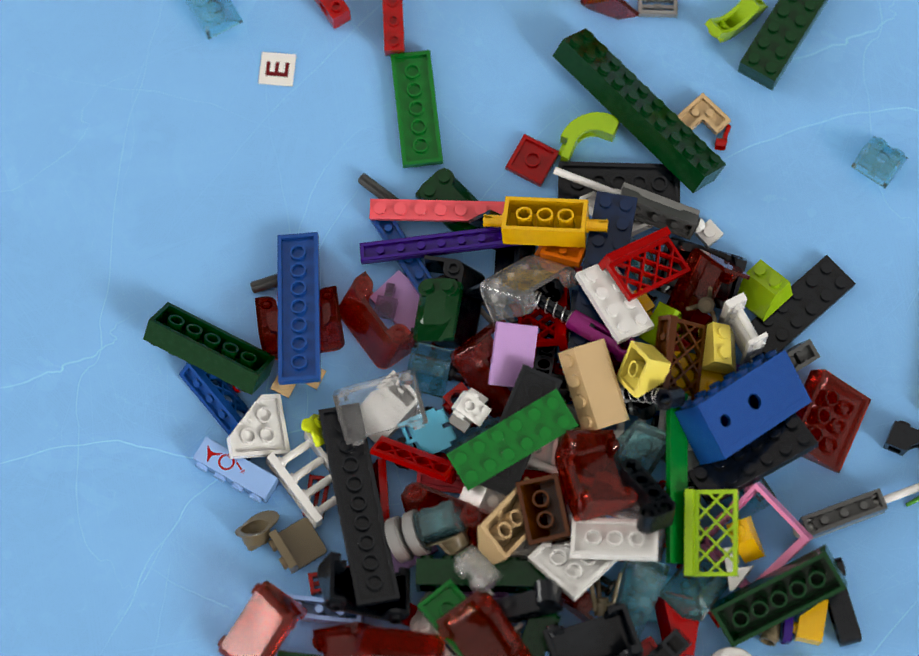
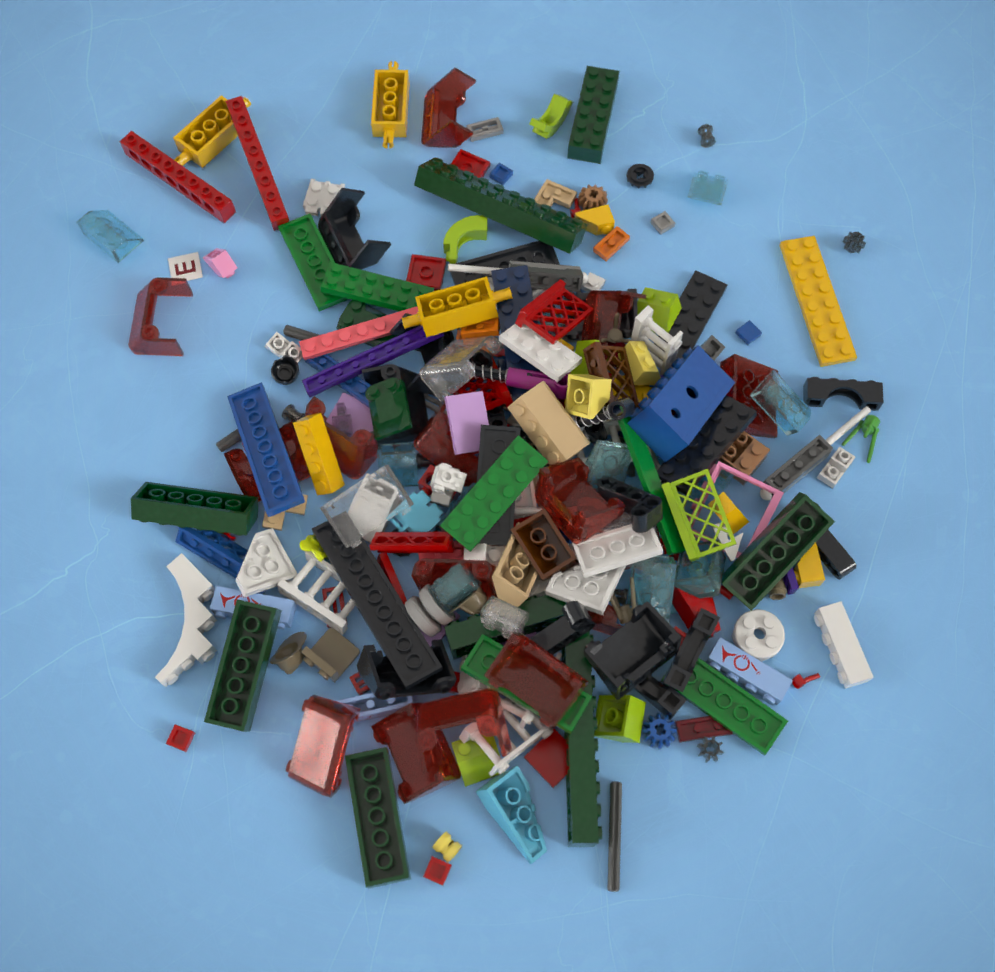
camera: 20 degrees left, 5 degrees down
(126, 577) = (180, 738): none -> red plate
(177, 464) = (197, 620): none -> white arch
(208, 527) = (243, 666): none -> dark green brick
(209, 138) = (144, 336): none -> clear red windscreen
(316, 77) = (221, 263): none -> bright pink slope
(339, 279) = (292, 414): none -> clear smoke bush
(346, 225) = (285, 370): none -> black hair
(351, 334) = (319, 454): none -> yellow brick
(353, 200) = (281, 346): none -> white slope
(450, 34) = (320, 196): none -> white plate
(456, 90) = (341, 235): none -> black windscreen
(470, 163) = (371, 287): none -> green plate
(624, 46) = (472, 163): none -> red tile
(656, 67) = (501, 173): none -> blue tile
(740, 160) = (598, 220): none -> yellow slope
(746, 193) = (611, 243): none -> orange plate
(748, 126) = (592, 197): none -> medium nougat gear
(793, 483) = (745, 455): none -> medium nougat slope
(810, 112) = (637, 170): none -> black gear
(813, 185) = (662, 222): none -> light grey tile
(856, 346) = (748, 332): none -> blue tile
(857, 439) = (781, 403): none -> clear light blue slope
(887, 527) = (836, 467): none -> white slope
(901, 101) = (706, 135): none -> clear smoke bush

